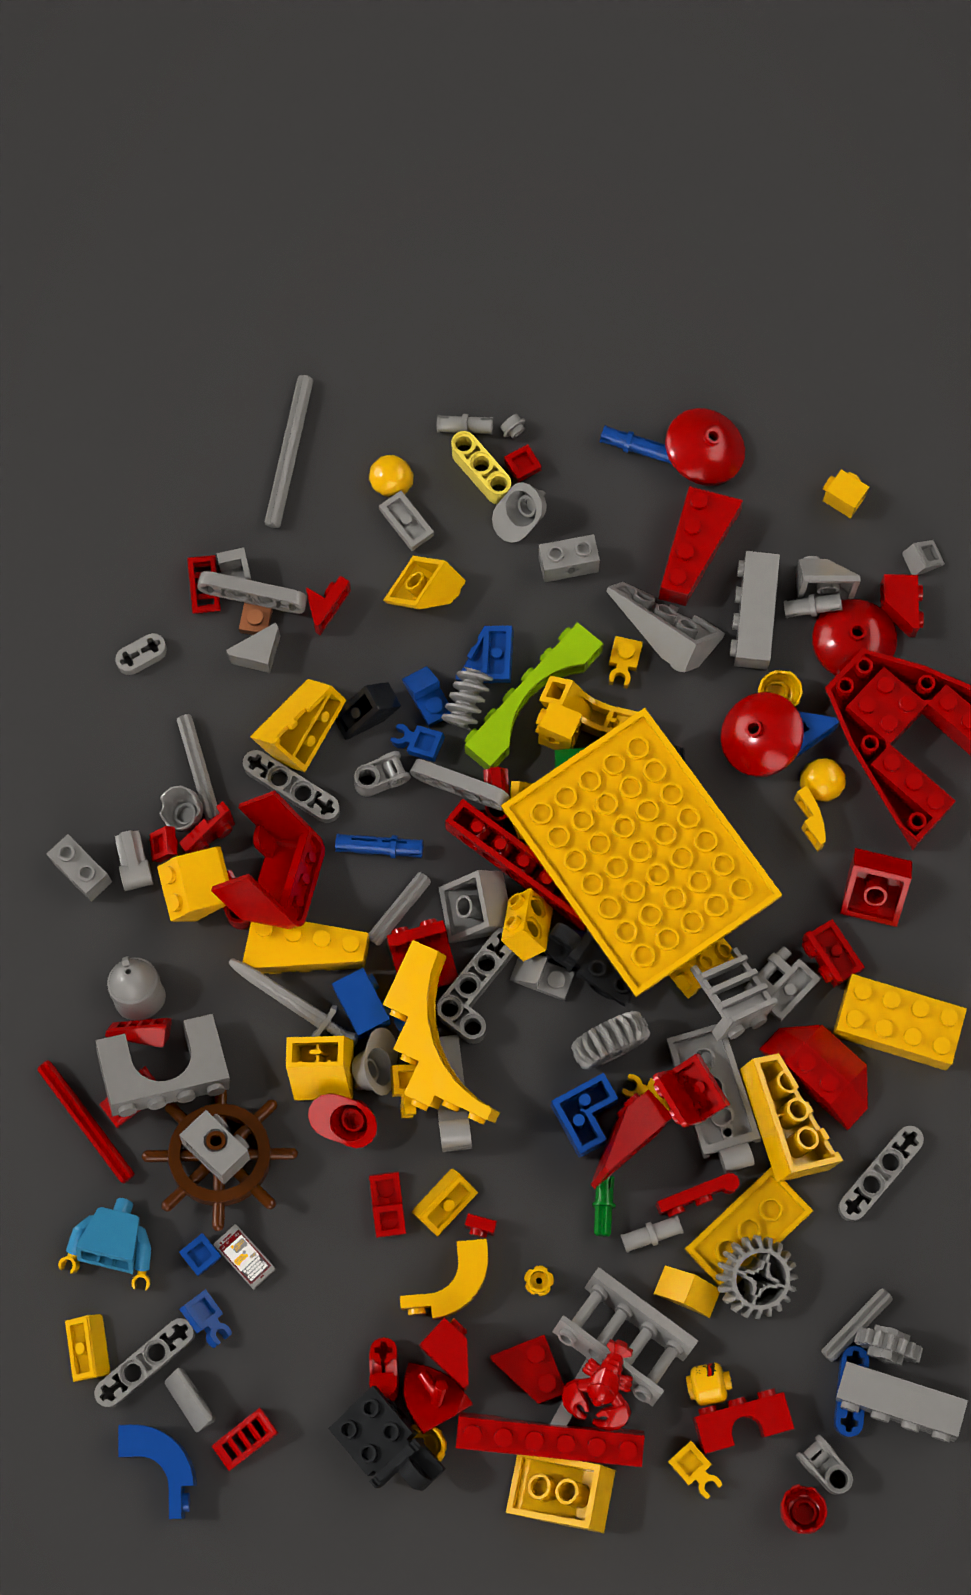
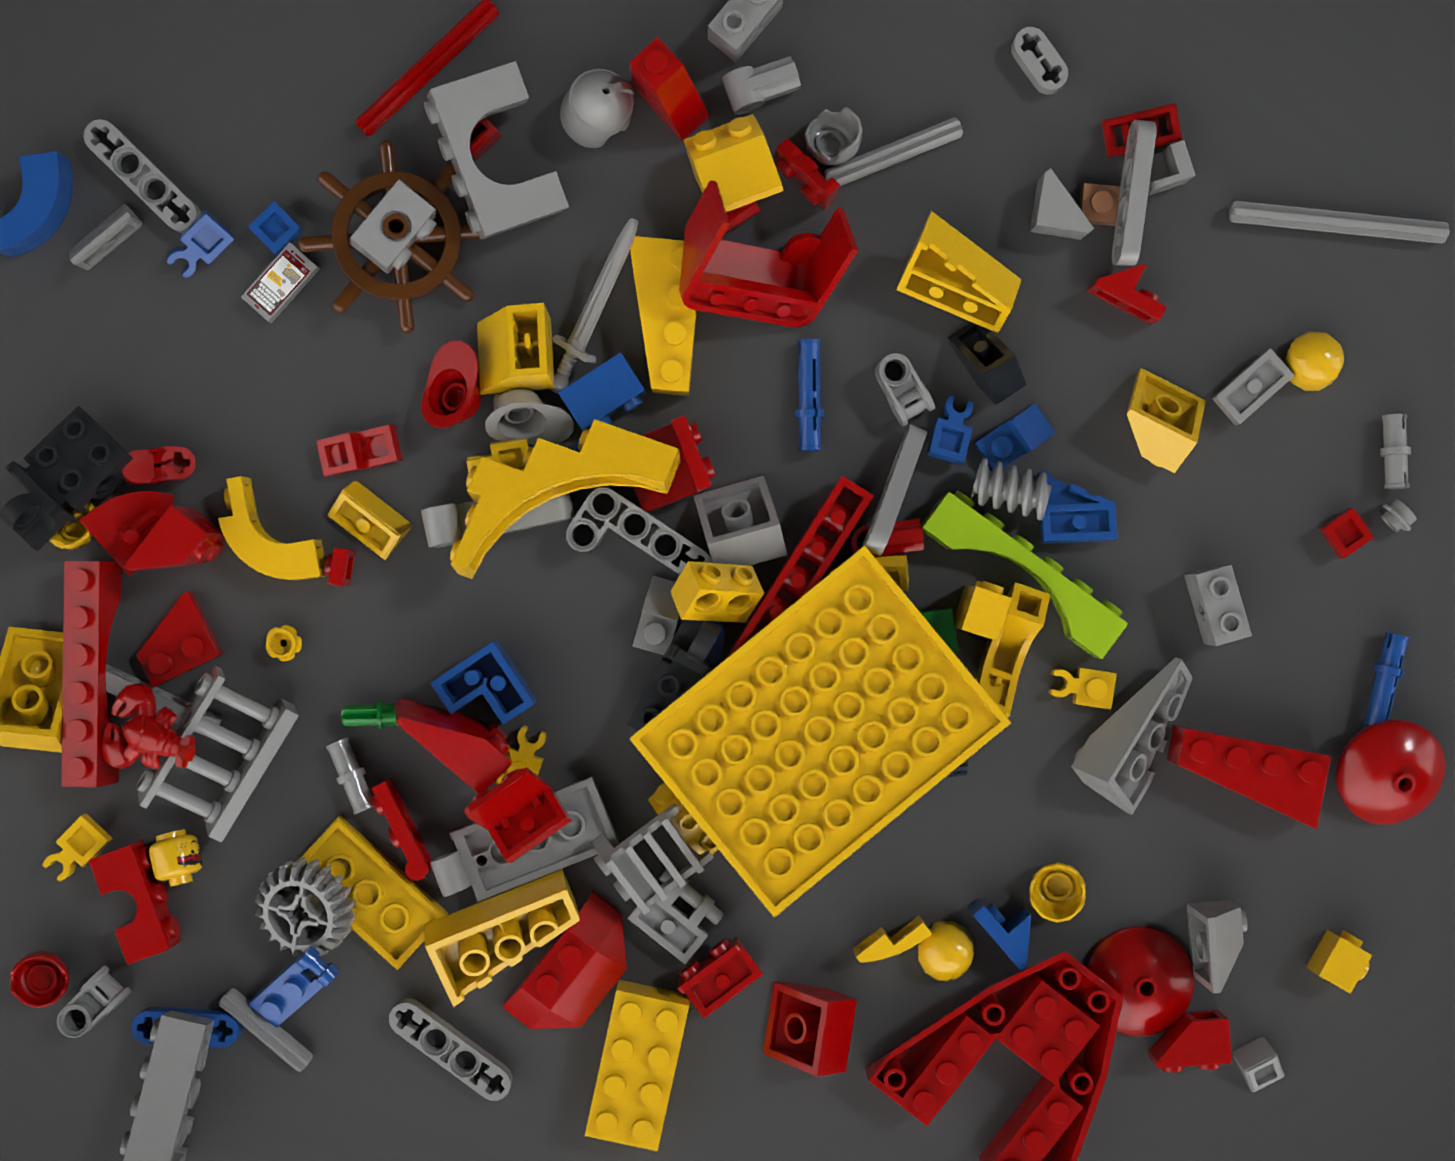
camera: 85 degrees right, 15 degrees up
(87, 1347) = (155, 106): yellow slope -> none
(111, 1241) = (277, 117): dark azure torso -> none
(131, 928) = (668, 89): none -> red slope
(146, 1032) = (542, 121): red slope -> none
(163, 844) = (786, 120): red plate -> none
(266, 1424) = (84, 329): red slope -> none
(293, 783) = (875, 273): light grey beam -> none
(399, 908) = (730, 428): light grey axle -> none
(477, 456) = (1352, 473): light yellow beam -> none
(518, 512) = (1276, 534): light grey piece -> none
(610, 1040) = (579, 709): light grey gear -> none
(687, 1290) = (287, 822): yellow slope -> none
(756, 610) = (1166, 854): light grey brick -> none
(773, 744) = (994, 895): red dish -> none
(813, 605) = (1179, 927): light grey pin -> none
(820, 1292) = (293, 986): none -> blue plate
(888, 1345) = (234, 1073): light grey gear -> none

